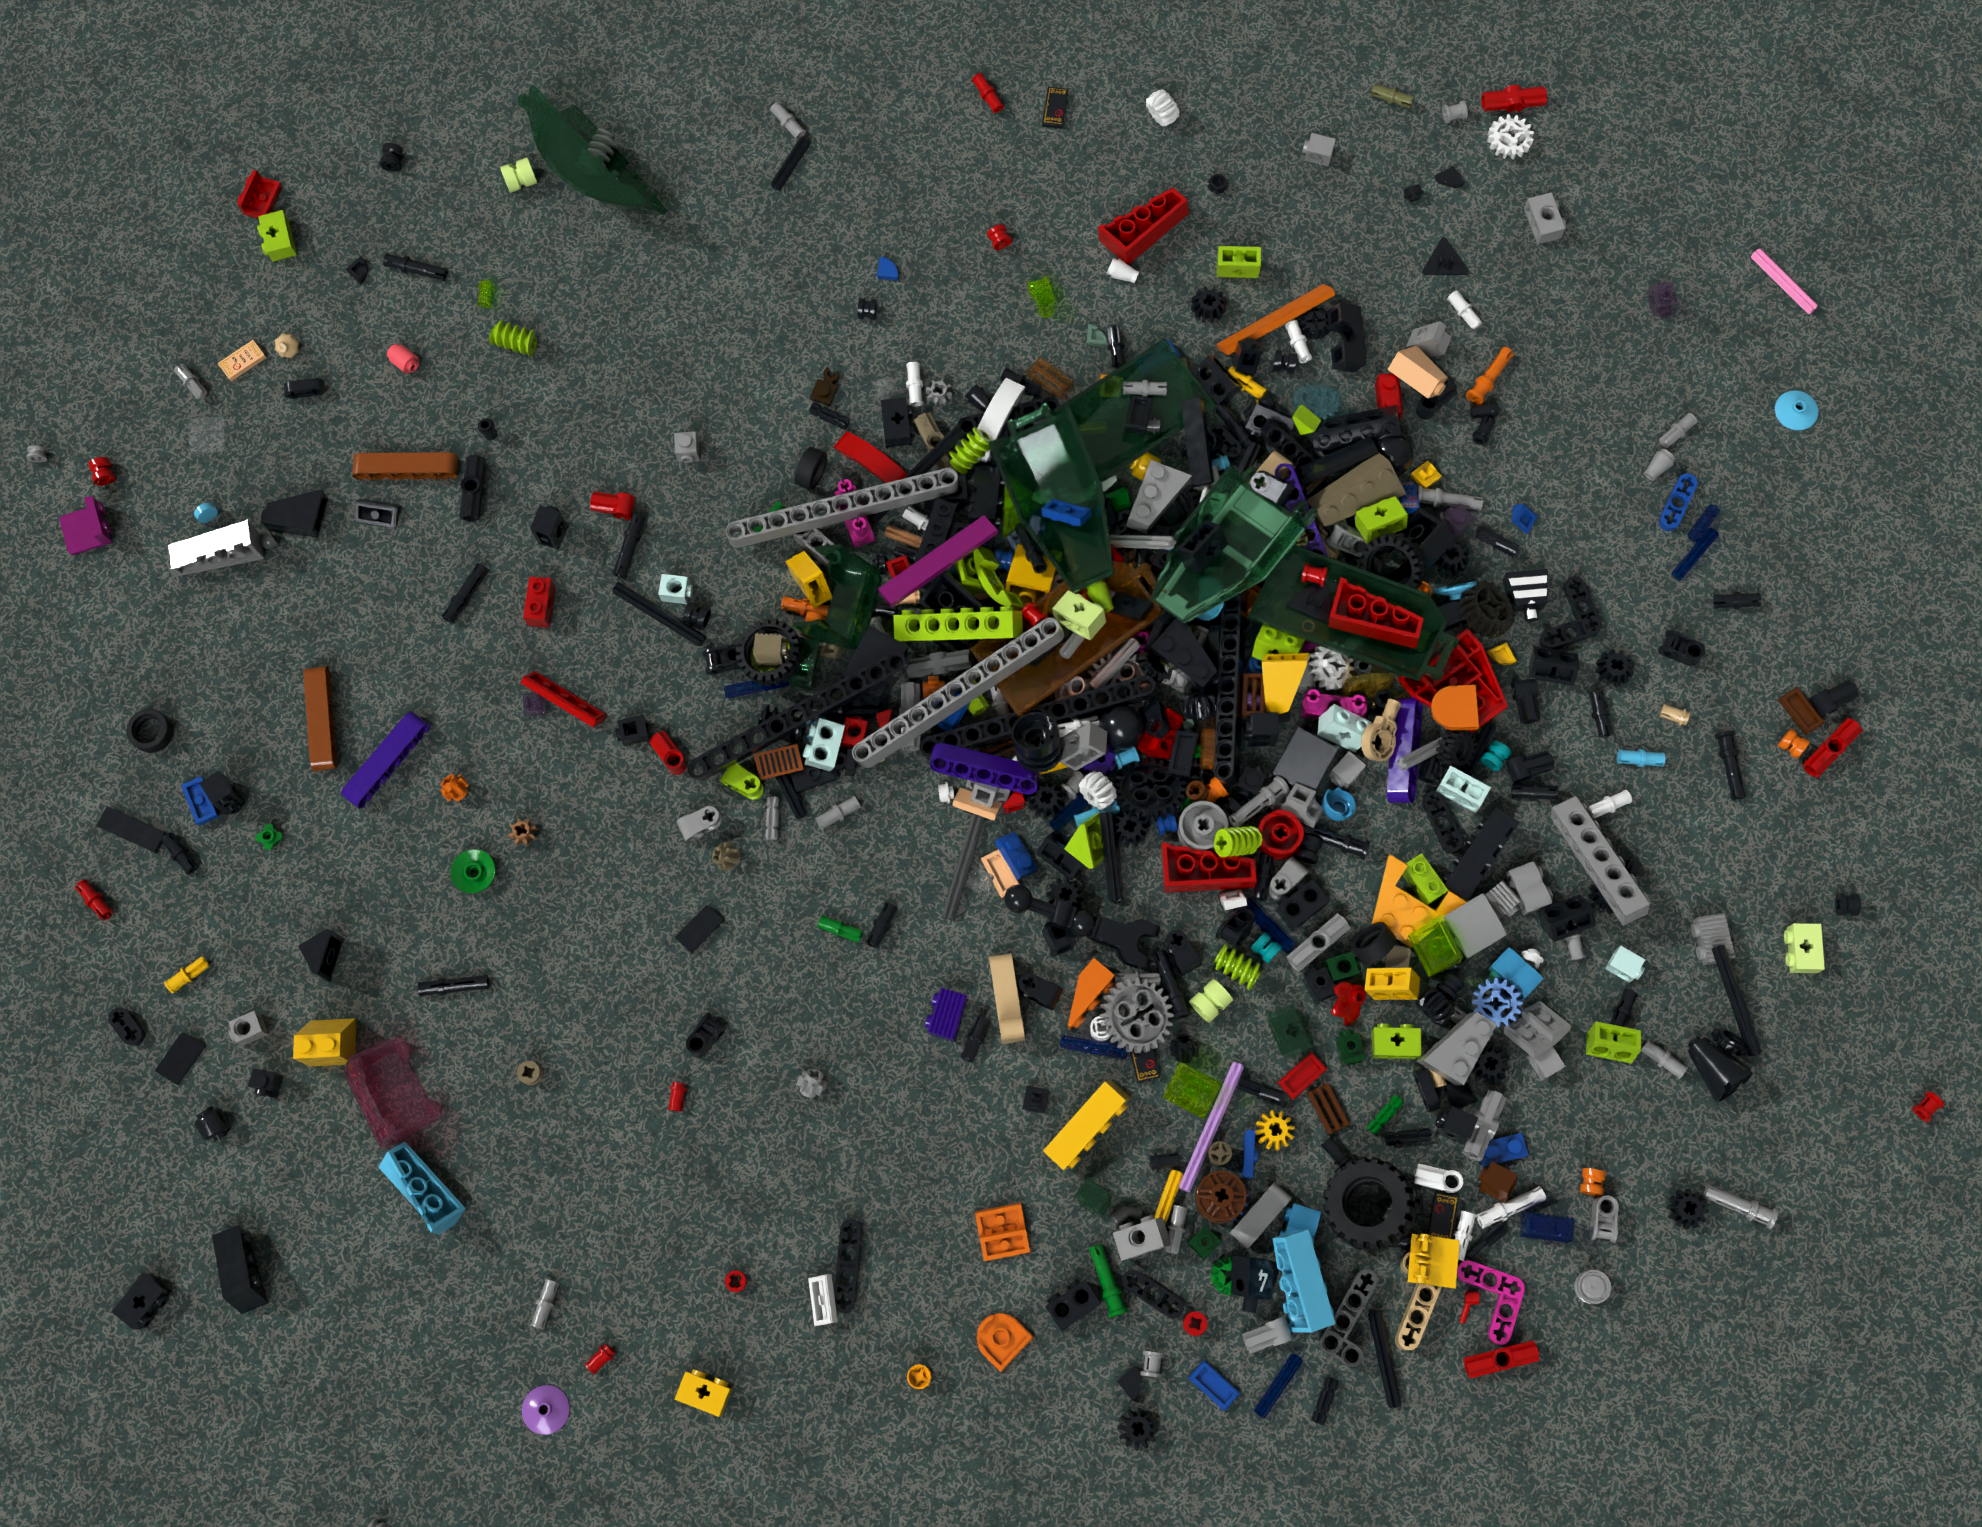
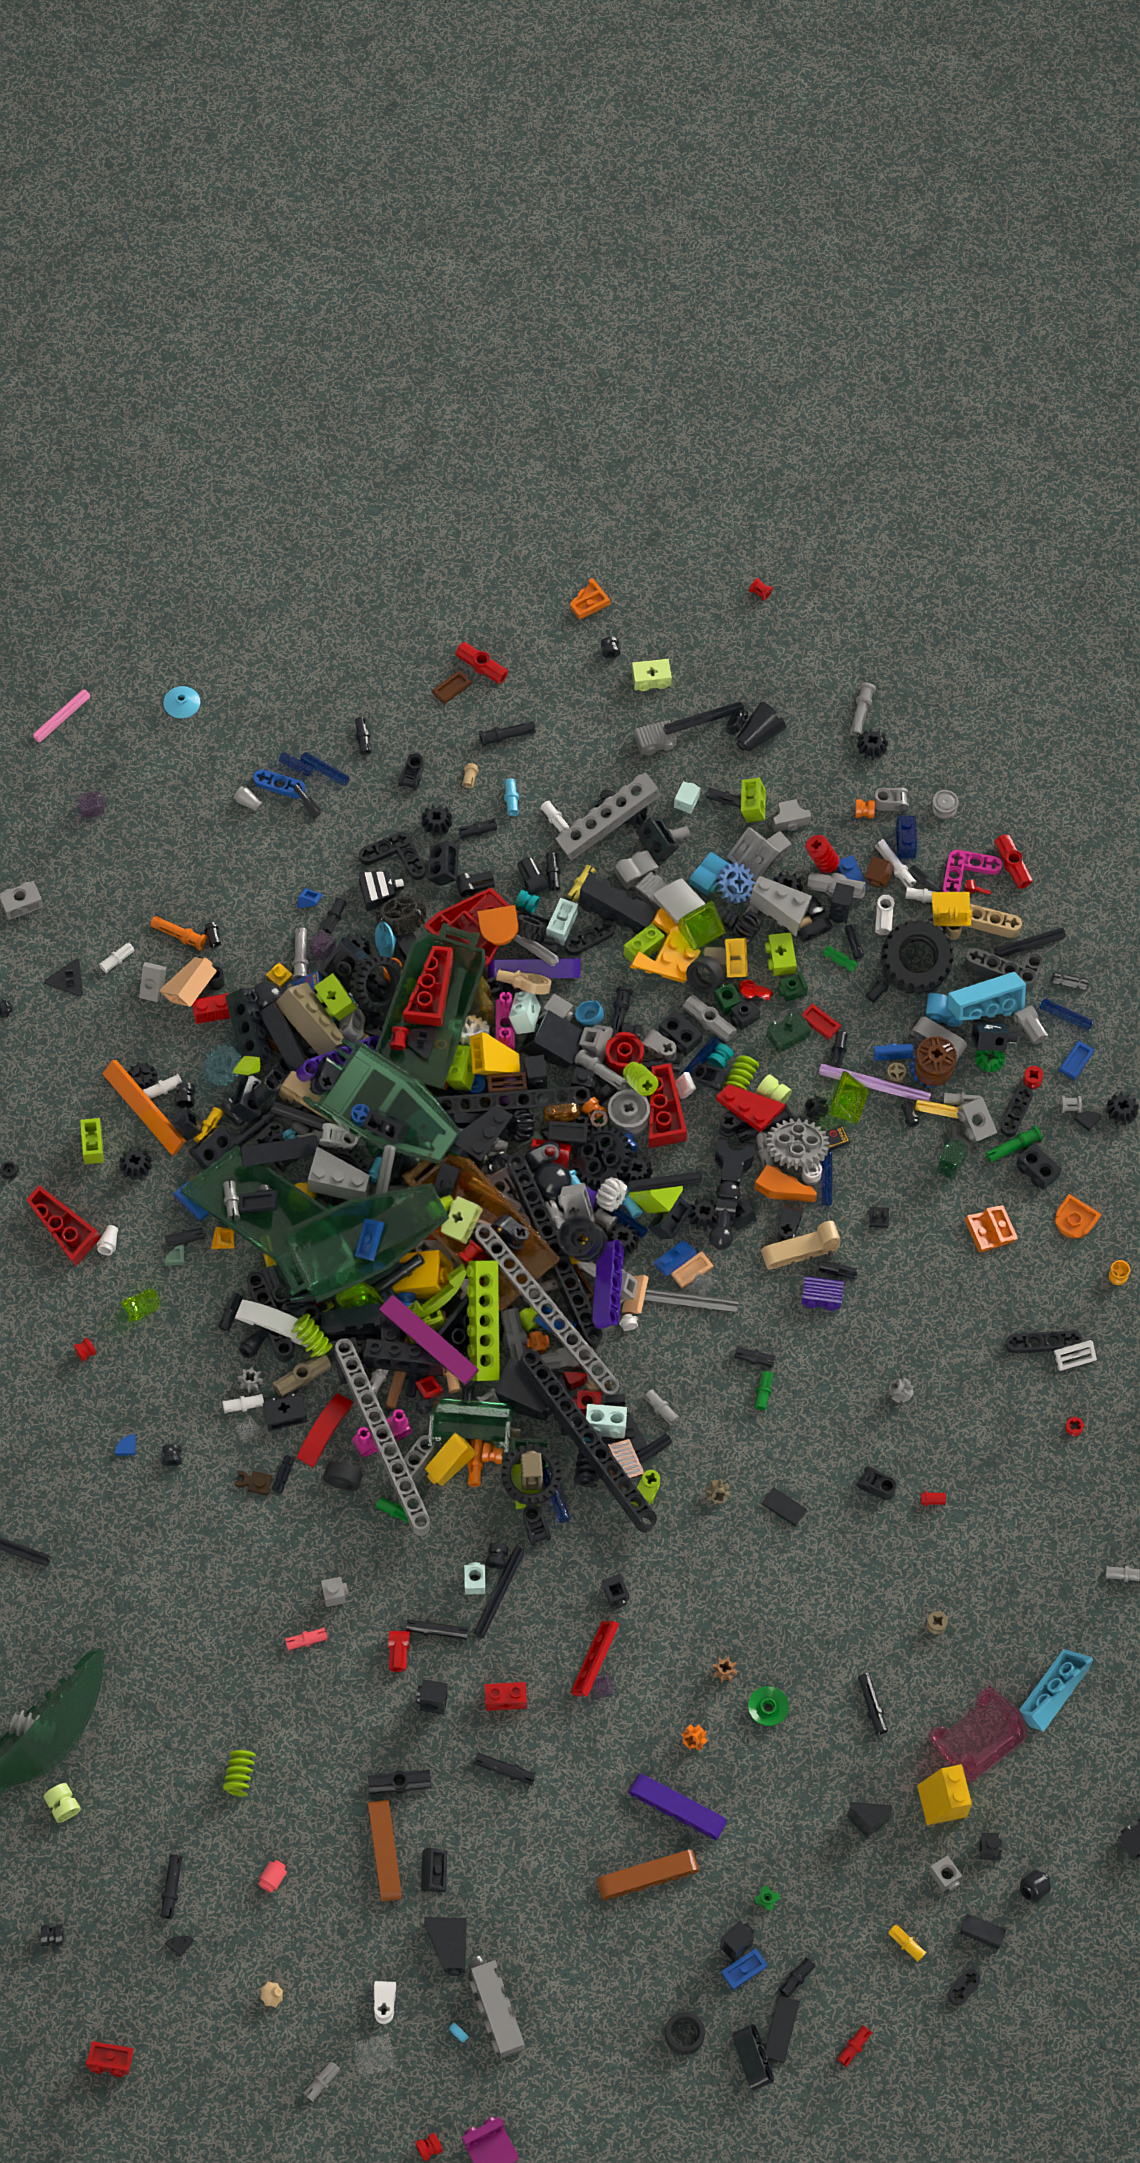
camera: 105 degrees left, 10 degrees down
(105, 793) = (753, 2057): none -> black beam
(242, 360) = (290, 2038): light nougat tile -> none
(256, 447) = (384, 1998): none -> white piece
(276, 225) = (162, 2025): lime brick -> none
(304, 388) = (315, 1966): black beam -> none
(485, 293) = (192, 1812): clear neon green pin -> none
(487, 428) = (337, 1782): black pin -> none
(644, 418) = (306, 1639): none -> coral pin
(668, 752) = (629, 1558): red piece -> none
(697, 823) = (693, 1522): light grey piece -> none
(772, 818) = (674, 1462): light grey axle -> none
(927, 462) = (326, 1375): black axle -> none
(1014, 803) = (630, 1265): red slope -> none
(1035, 367) = (212, 1304): clear orange tile -> none
(1059, 661) = (510, 1231): none -> black piece
(1087, 1124) = (893, 1171): yellow wedge -> none
(1189, 968) = (750, 1107): none -> red wing
(1204, 1242) = (969, 1076): dark green brick -> none
(1224, 517) = (358, 1112): none -> blue wheel
(1267, 1133) = (862, 1038): yellow gear -> none
(1337, 1127) = (847, 1006): reddish brown tile -> none
(1347, 321) = (169, 1041): black arch -> none
(1443, 1216) = (912, 910): black tile -> none
(1481, 435) = (233, 934): black pin -> none
(1502, 654) = (435, 904): yellow tile -> none
(1523, 826) = (579, 882): none -> light yellow pin
(1526, 1112) = (822, 854): none -> red piece
(1532, 958) = (693, 863): white plate -> none
(1588, 1086) = (790, 816): none -> light grey brick
(1648, 529) = (308, 803): none -> black axle
(1664, 1059) = (758, 765): light grey pin -> none
(1678, 430) = (213, 787): light grey axle -> none
(1793, 743) = (483, 688): orange wheel -> none
(1830, 700) = (440, 666): black piece -> none
(1918, 889) = (589, 600): none -> orange wing

